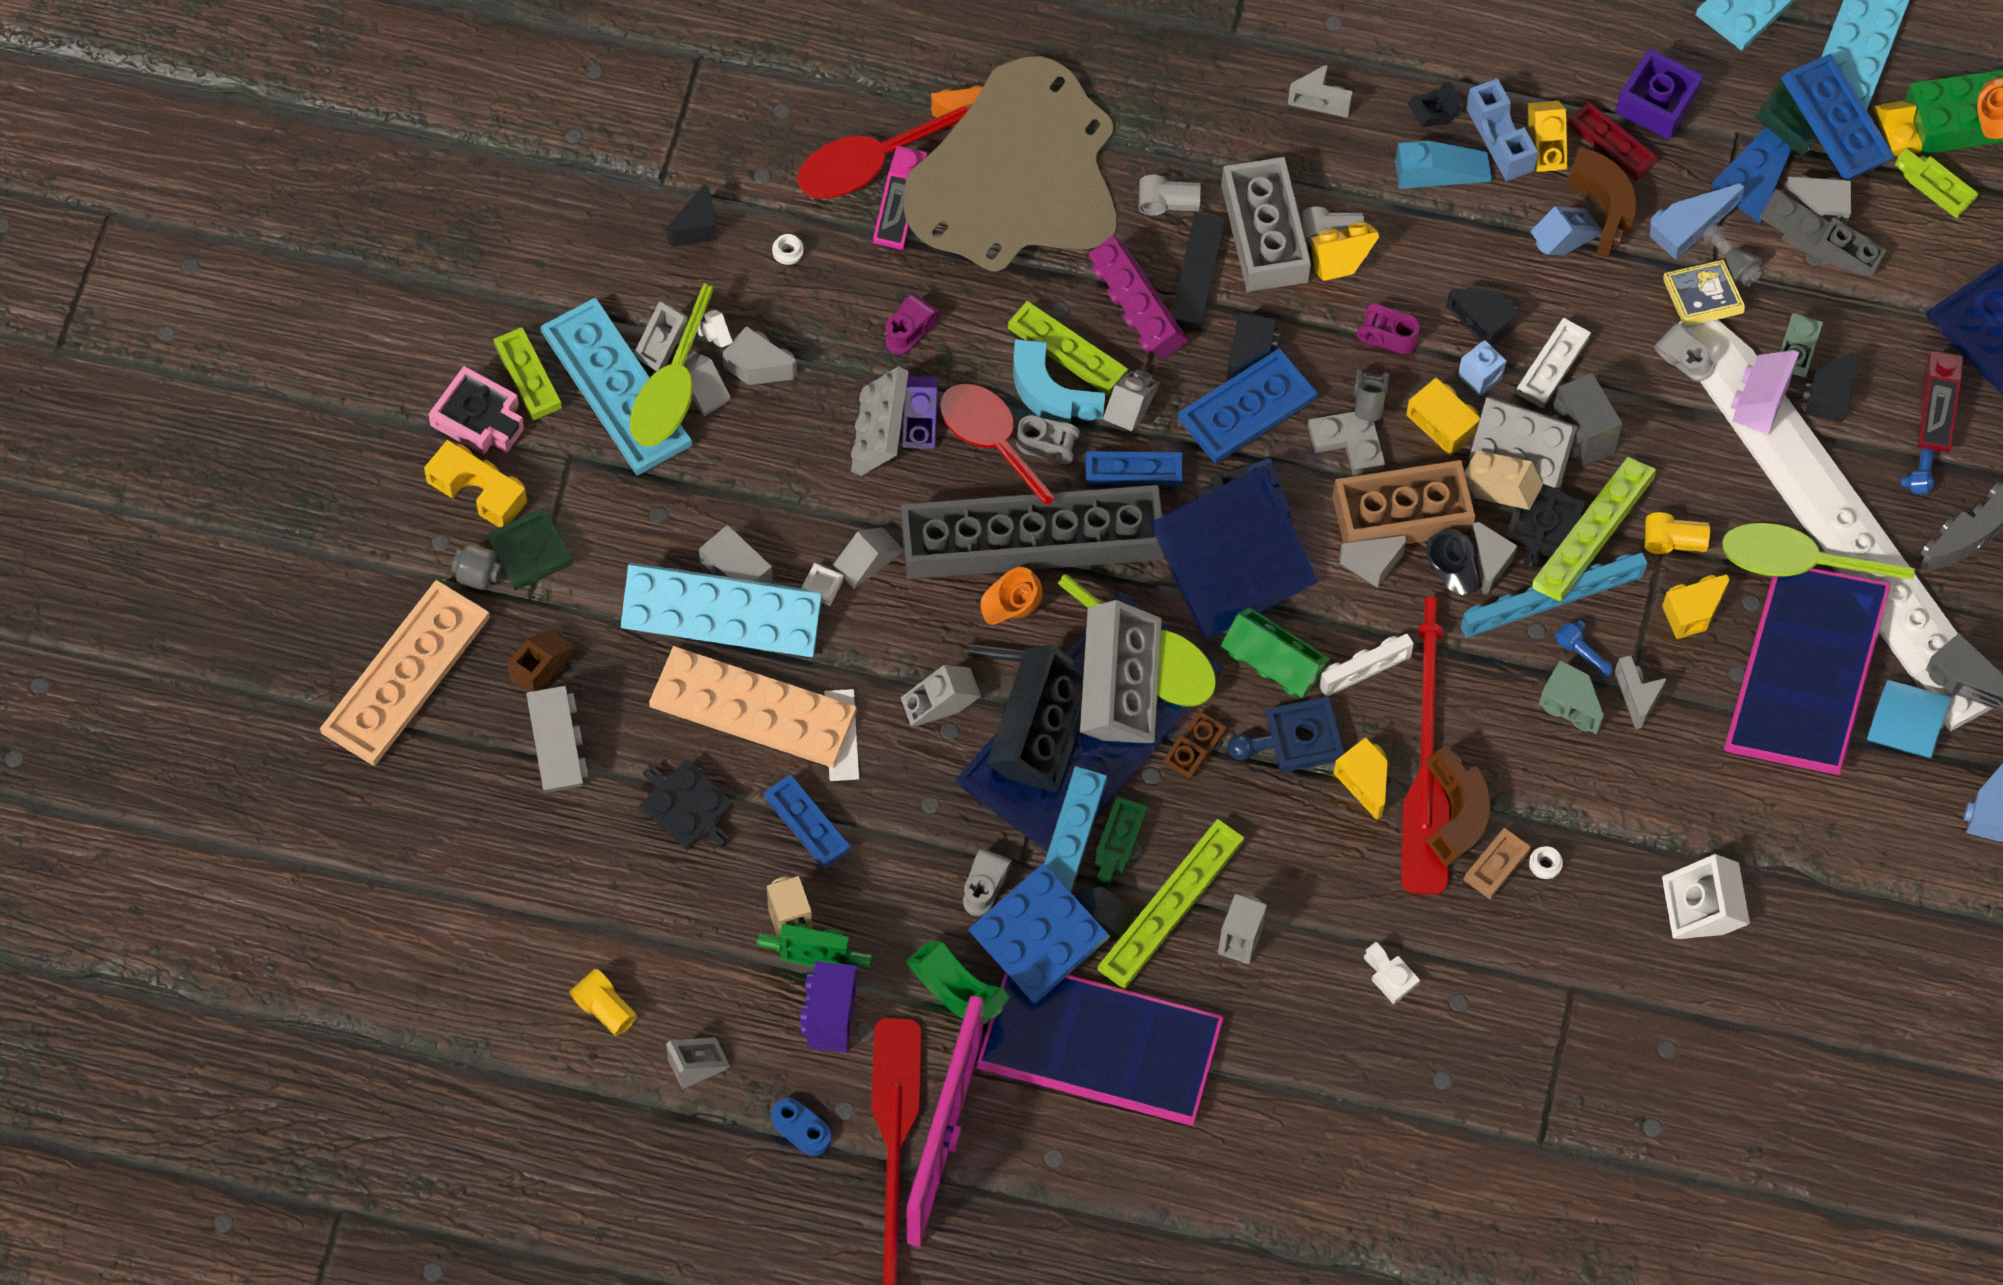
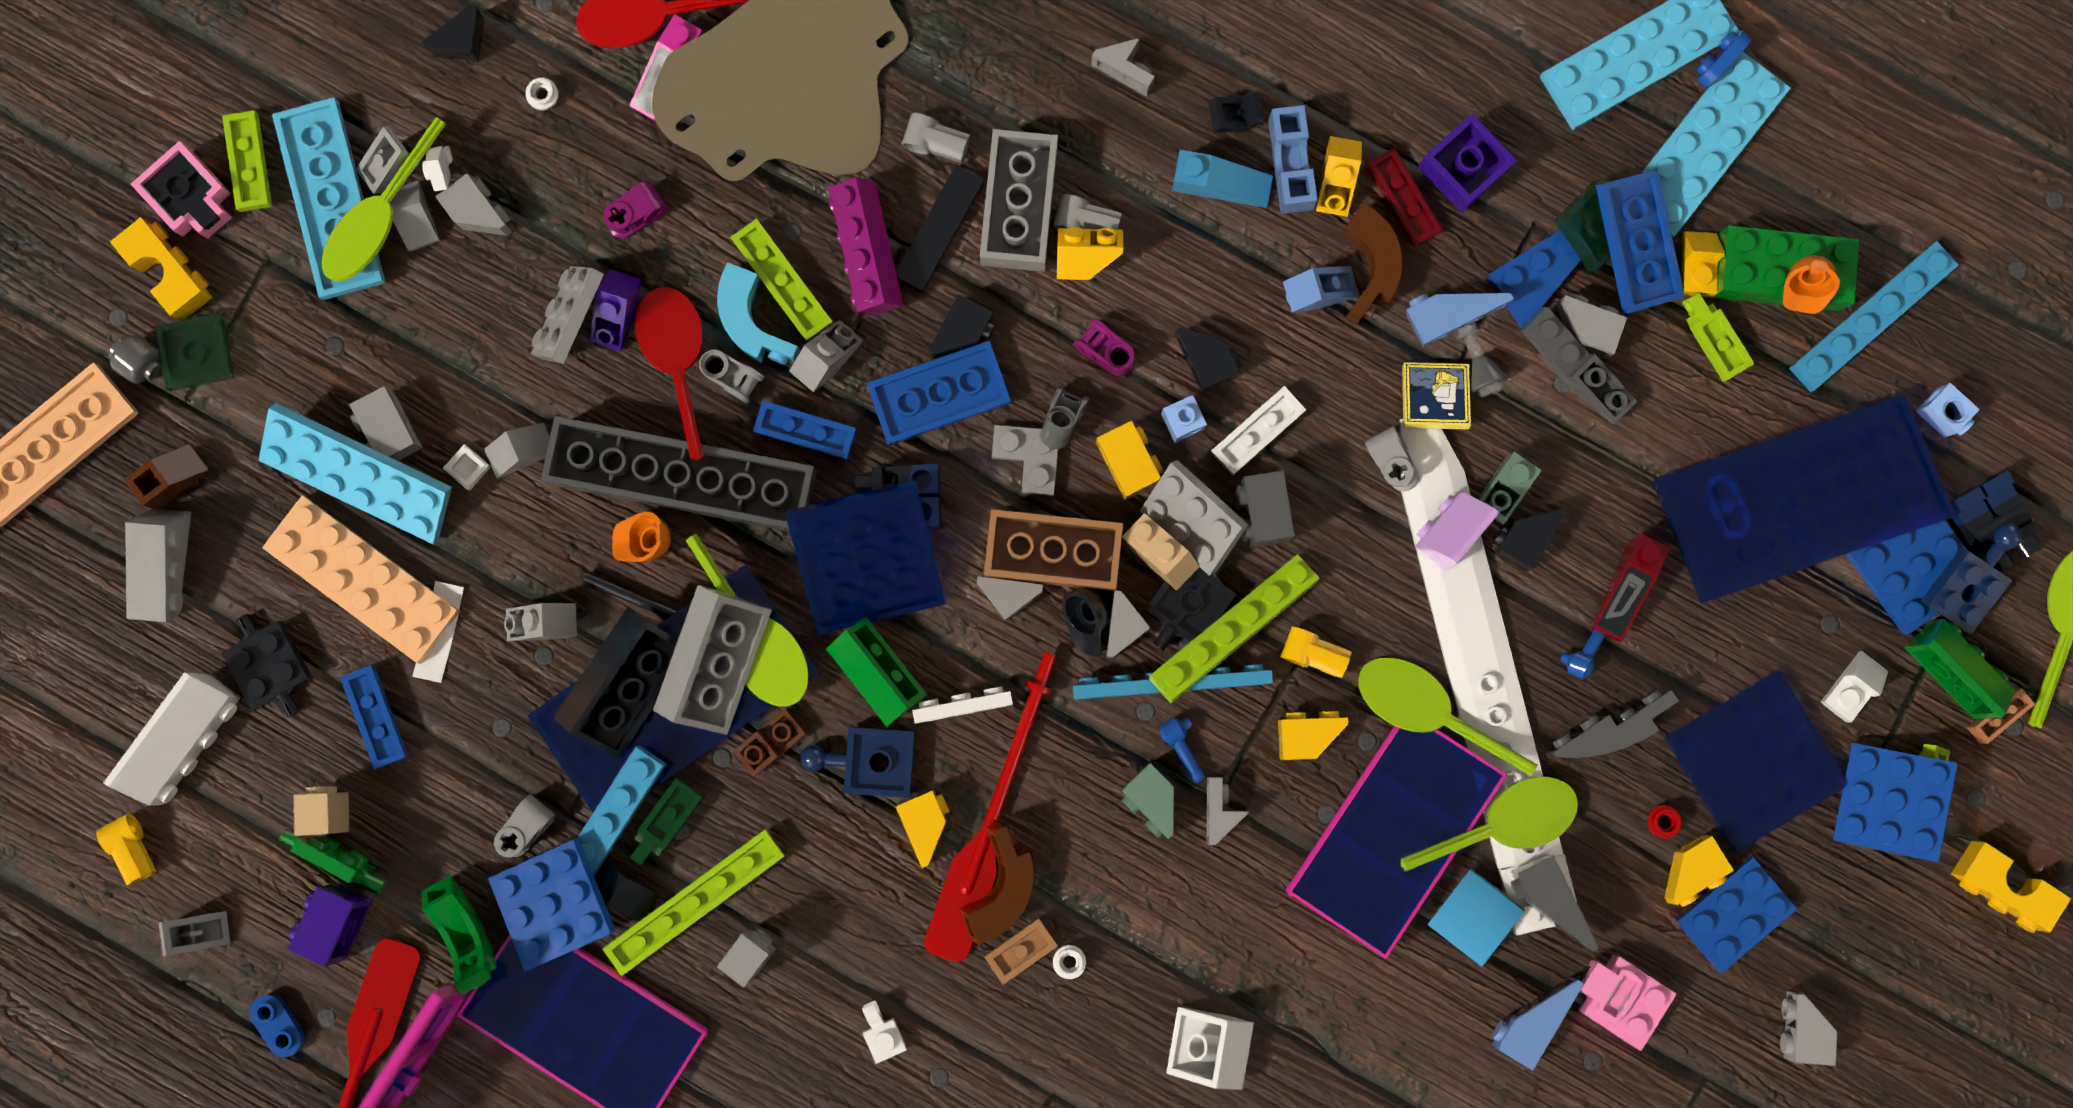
camera: 20 degrees right, 20 degrees up
(623, 886) = (173, 739): none -> white slope
(1915, 617) = (1519, 818): none -> lime piece

